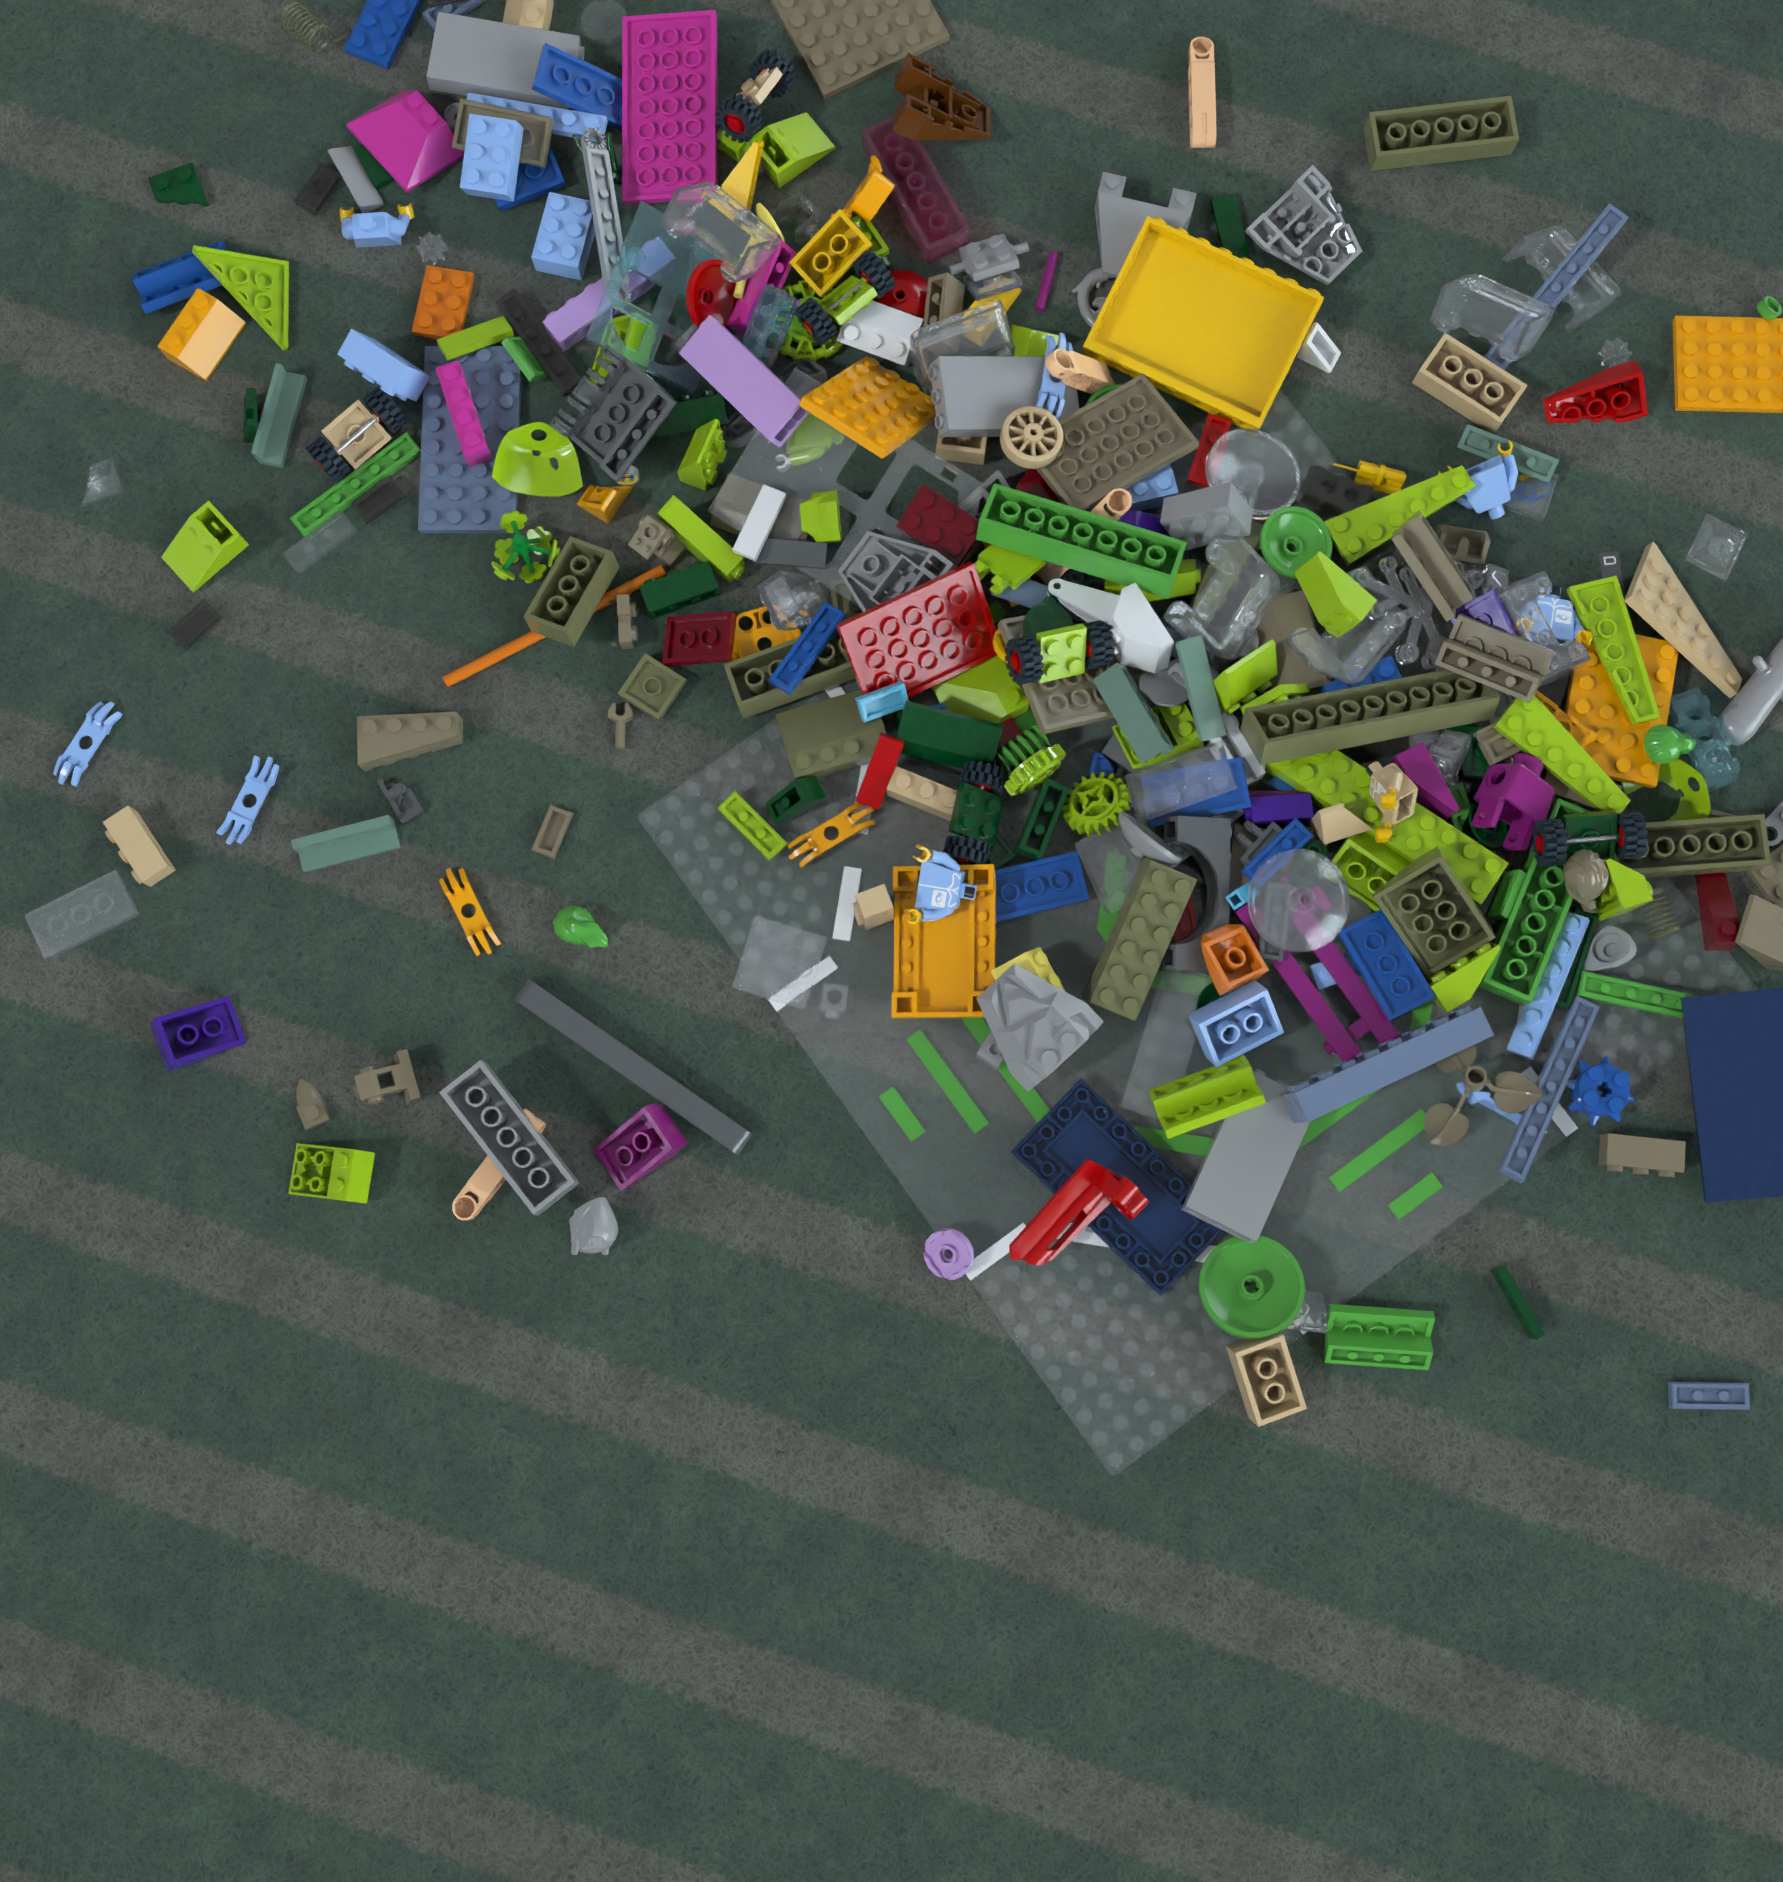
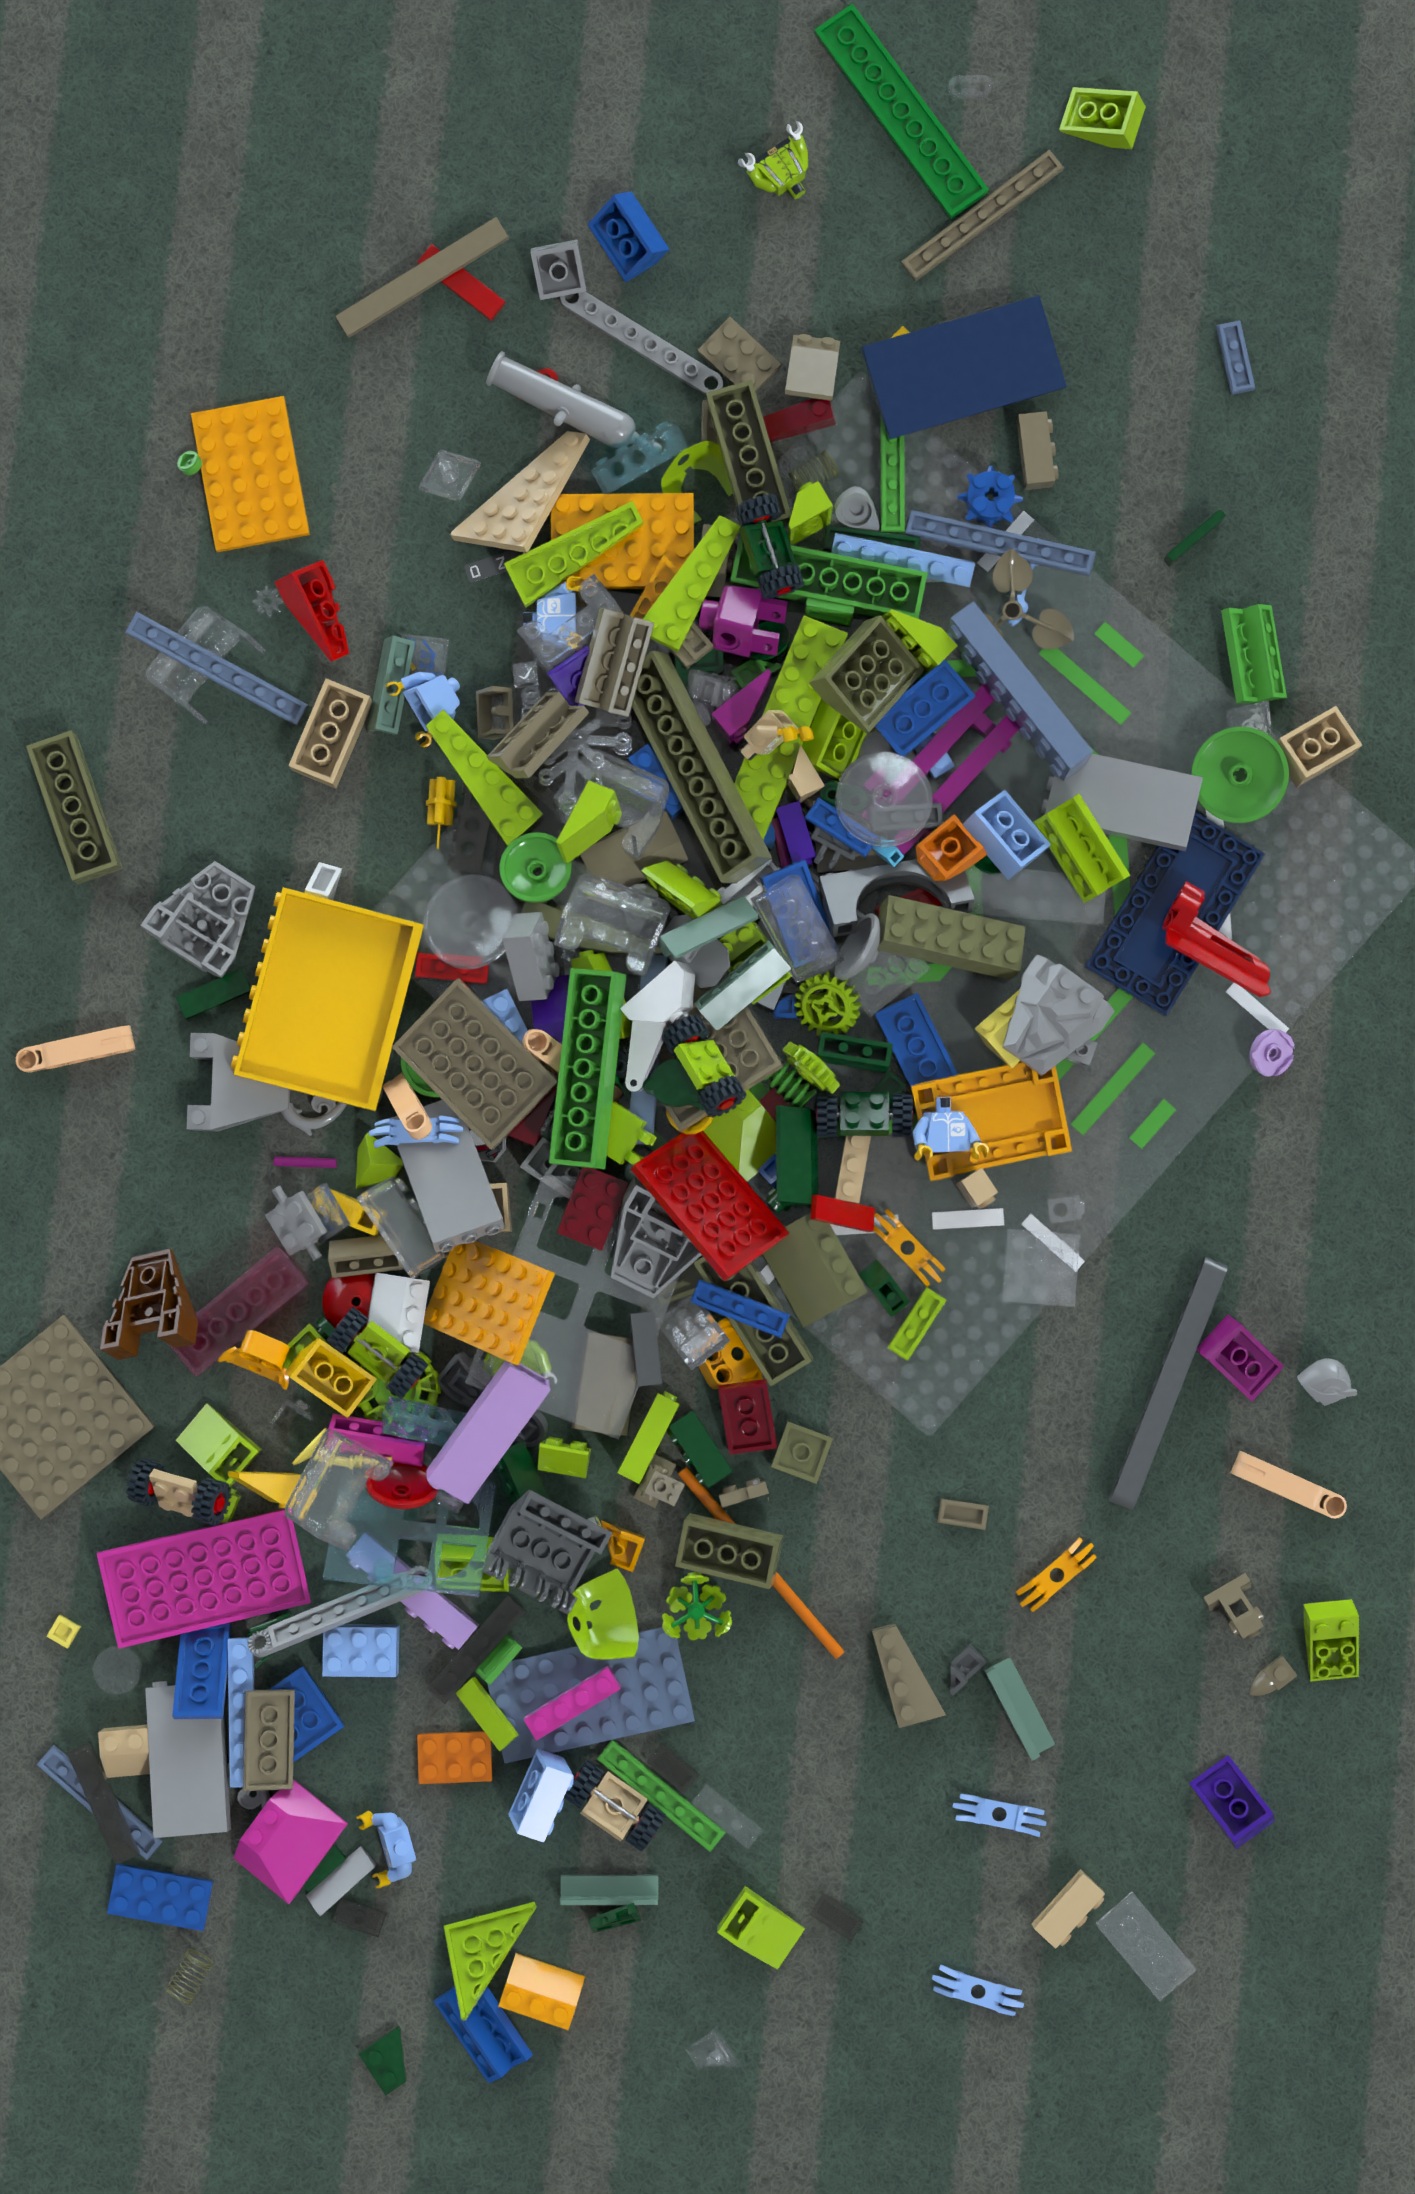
camera: 105 degrees left, 5 degrees up
(431, 247) = (407, 1781): clear gear -> none
(491, 157) = (301, 1742): light blue brick -> none
(509, 1137) = (1267, 1477): light grey brick -> none
(578, 927) = (1049, 1467): bright green hair -> none
(620, 723) = (843, 1474): dark tan bar -> none
(759, 522) = (624, 1383): white tile -> none
(822, 517) = (606, 1324): lime slope -> none
(882, 701) = (776, 1225): medium azure tile -> none
(1031, 437) = (488, 1138): tan wheel -> none
(1279, 693) = (697, 856): lime plate -> none
(1494, 312) = (256, 721): clear windscreen -> none
(1585, 878) = (805, 544): dark tan hair -> none
(1666, 744) = (655, 491): bright green hair -> none

